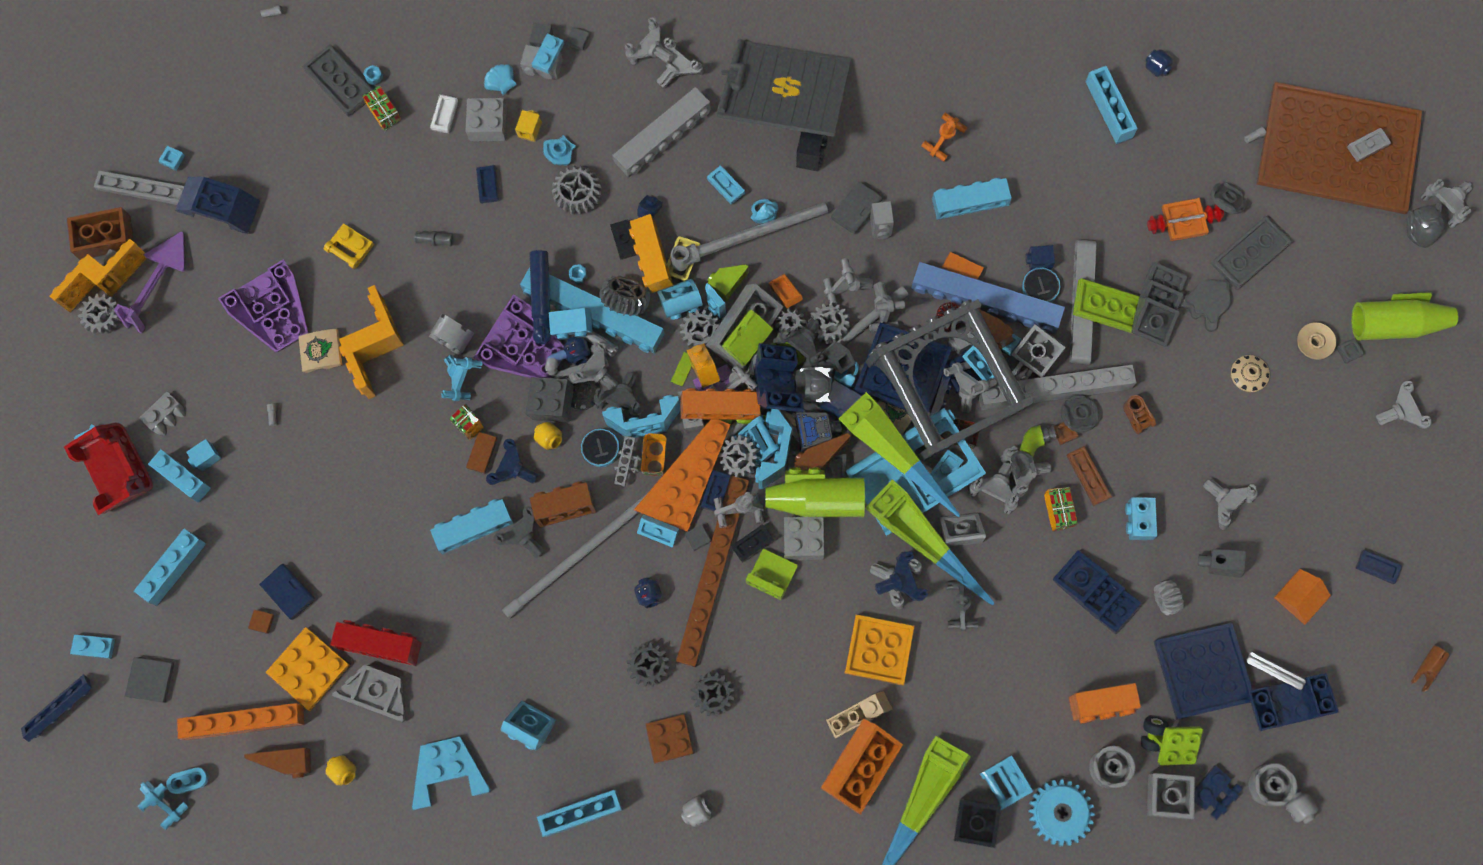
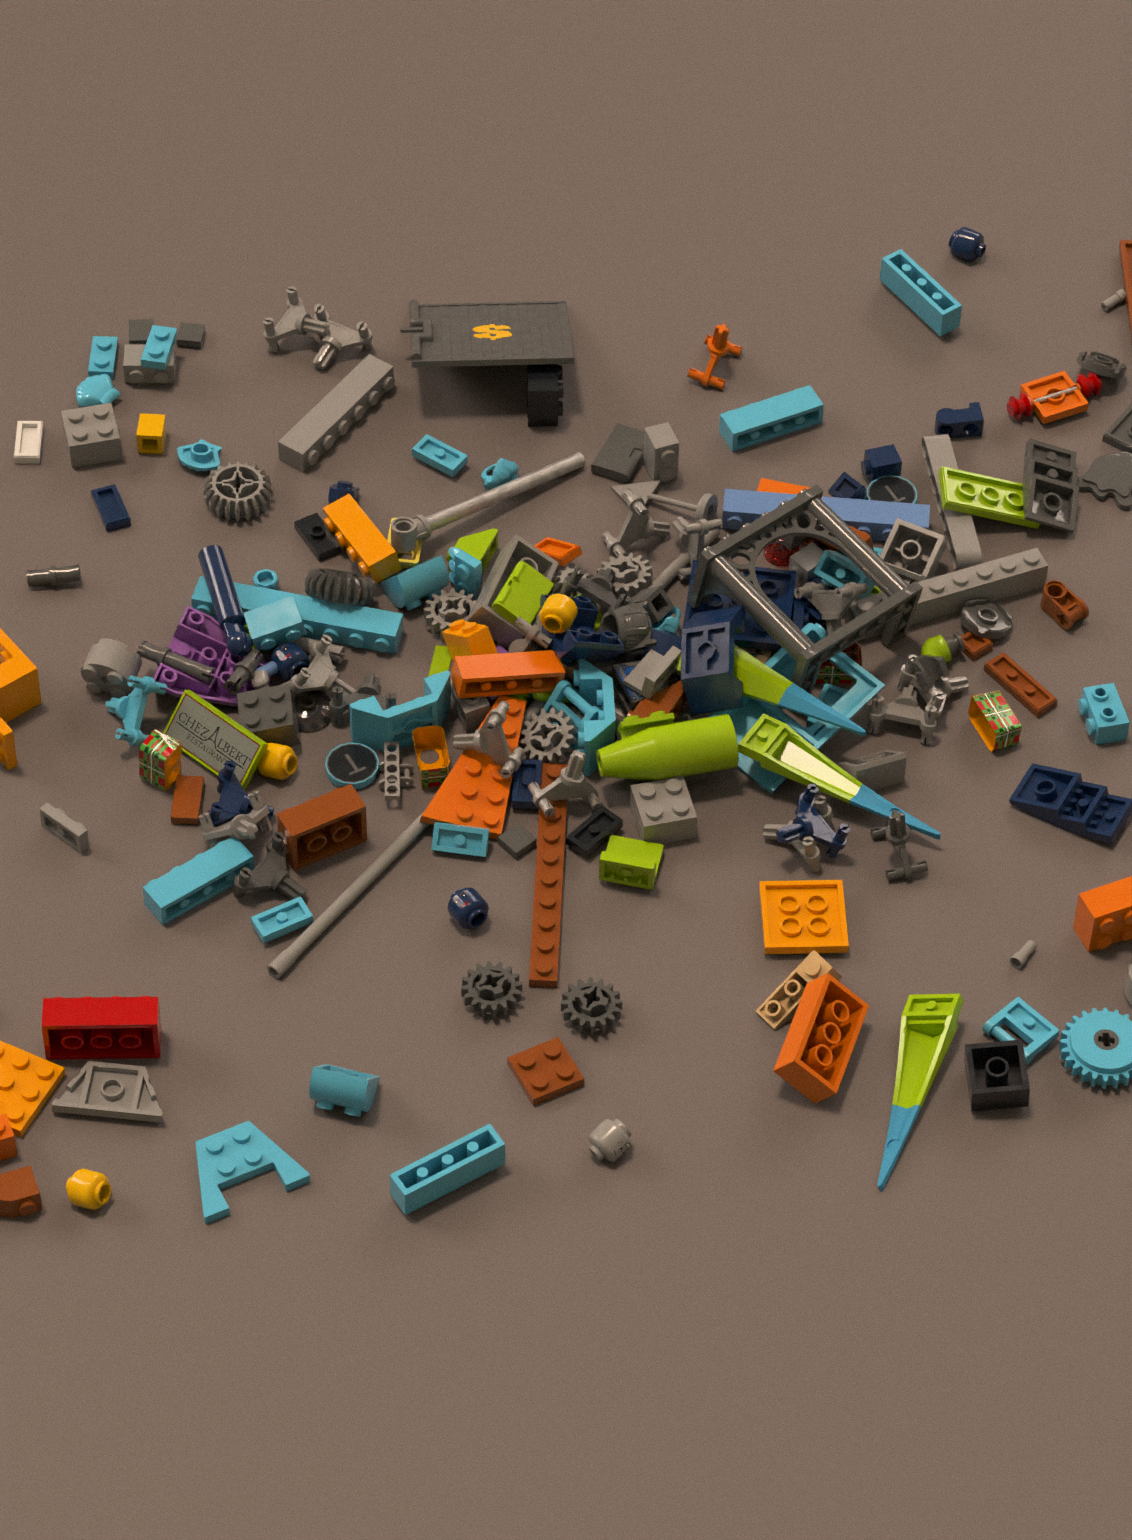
camera: 20 degrees left, 25 degrees down
(397, 467) = (64, 828): none -> light grey plate
(489, 335) = (176, 661): none -> dark grey pin
(507, 493) = (241, 826): none -> light grey axle
(508, 411) = (214, 737): none -> light grey tile
(512, 47) = (103, 356): none -> medium azure plate
(520, 572) = (282, 919): none -> medium azure plate
(540, 357) = (243, 671): none -> dark grey pin
(693, 461) = (492, 741): none -> light grey axle
(764, 369) = (558, 613): none -> yellow head
(821, 426) = (653, 672): none -> light grey panel
(859, 247) = (704, 509): none -> light grey piece
(864, 425) = (709, 660): none -> dark blue slope
(1010, 277) = (847, 488): none -> dark blue plate
(1022, 718) = (1021, 956): none -> light grey piece
(1109, 229) = (960, 422): none -> dark blue leg

